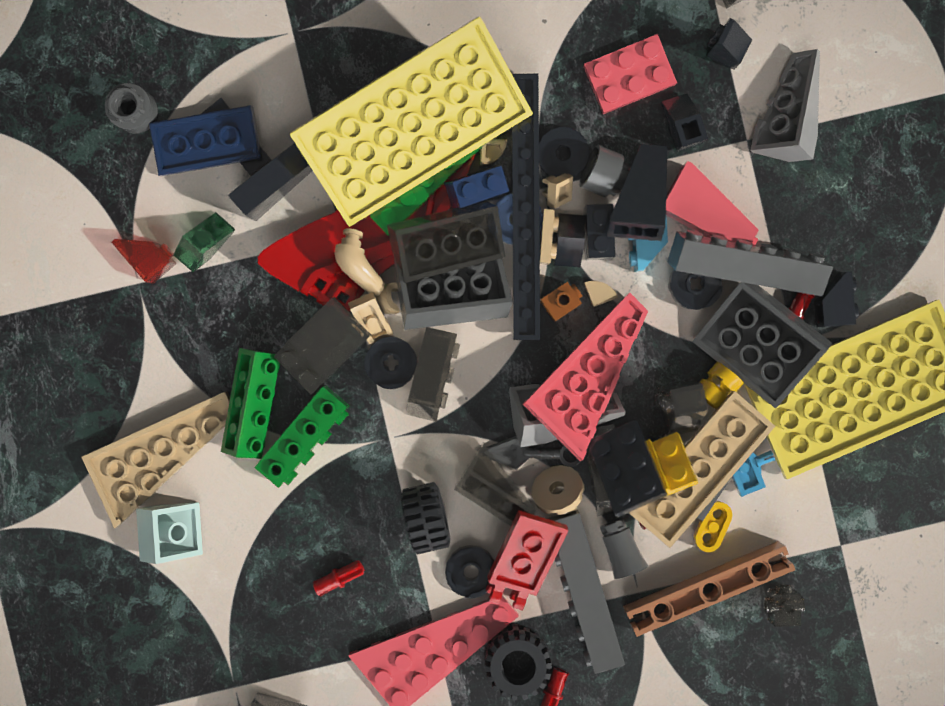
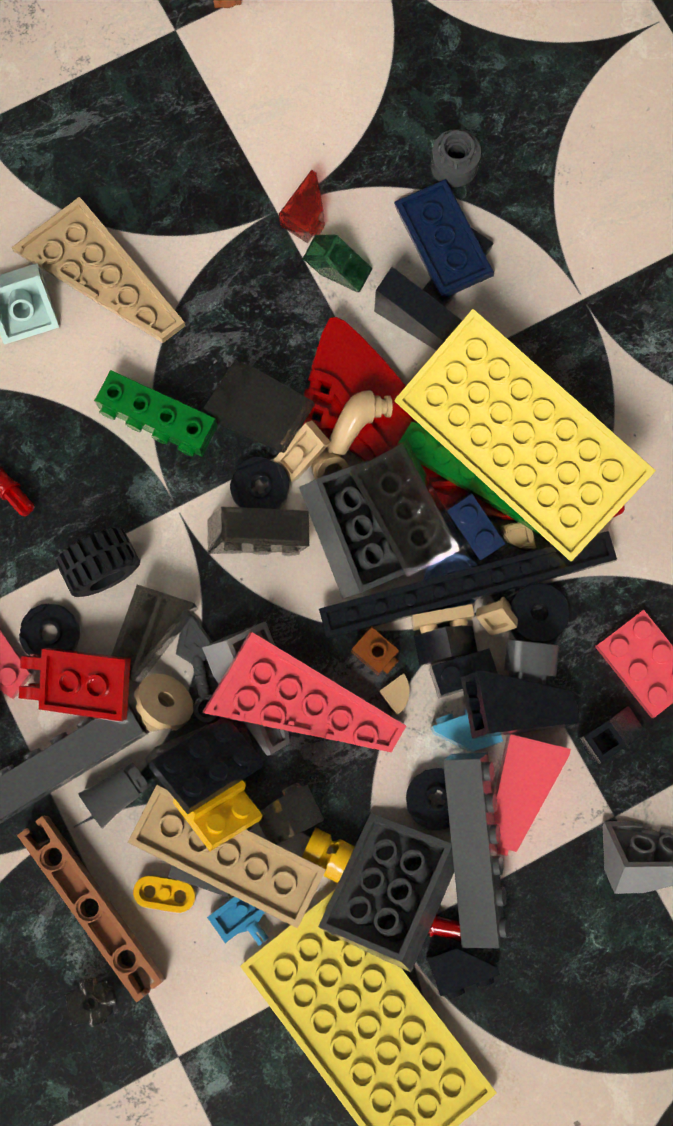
camera: 75 degrees right, 10 degrees down
(250, 404) = (177, 350): green brick -> none

